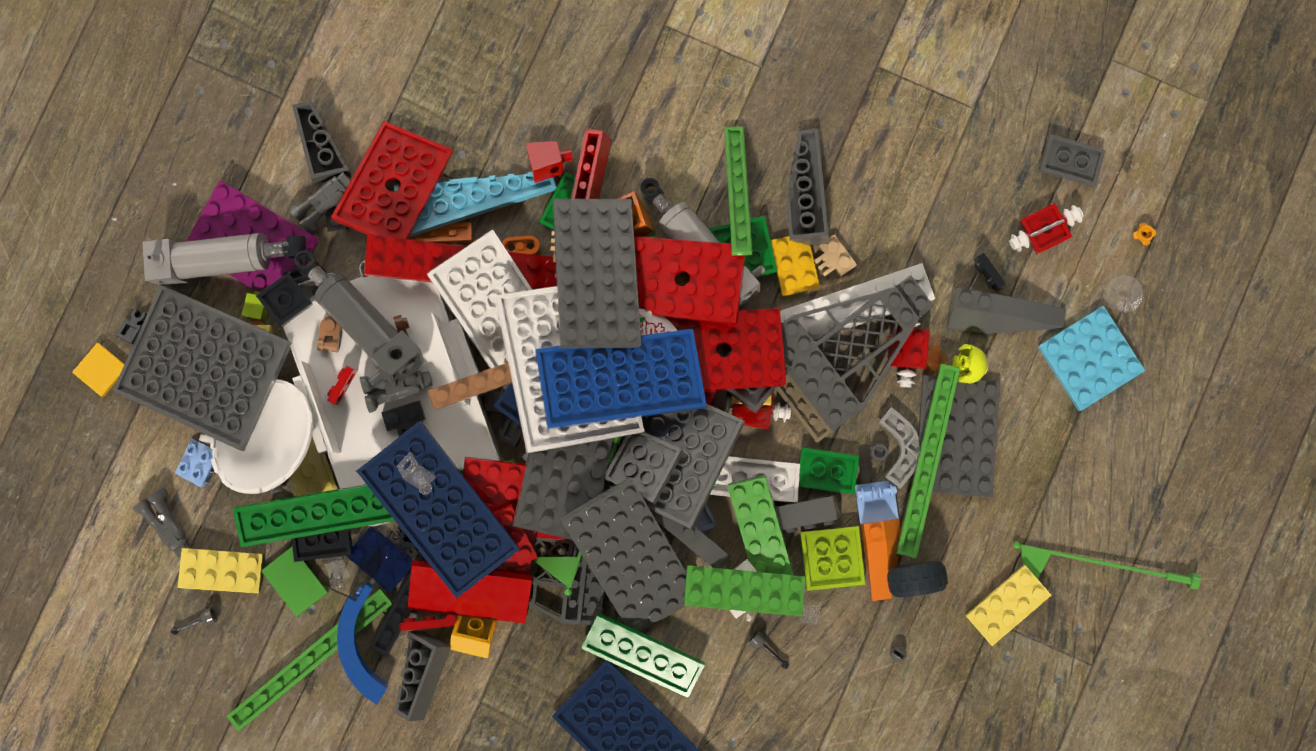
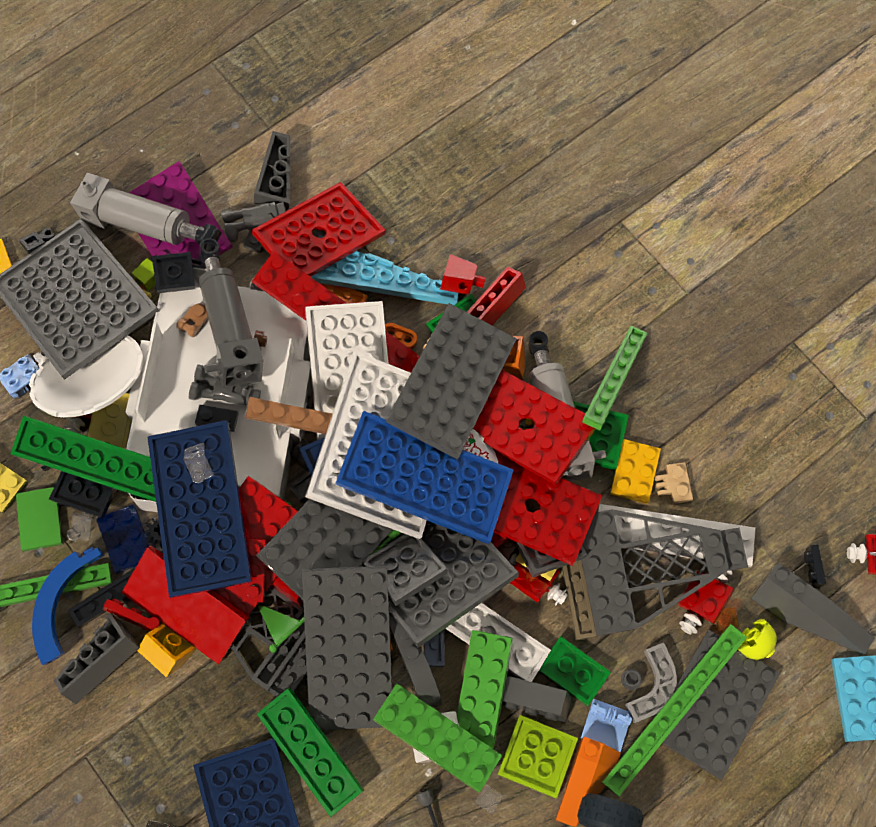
camera: 30 degrees right, 15 degrees down
(345, 378) = (182, 363): red plate -> none
(806, 193) = (676, 414): dark grey wedge -> none
(865, 463) = (612, 683): clear smoke axle -> none

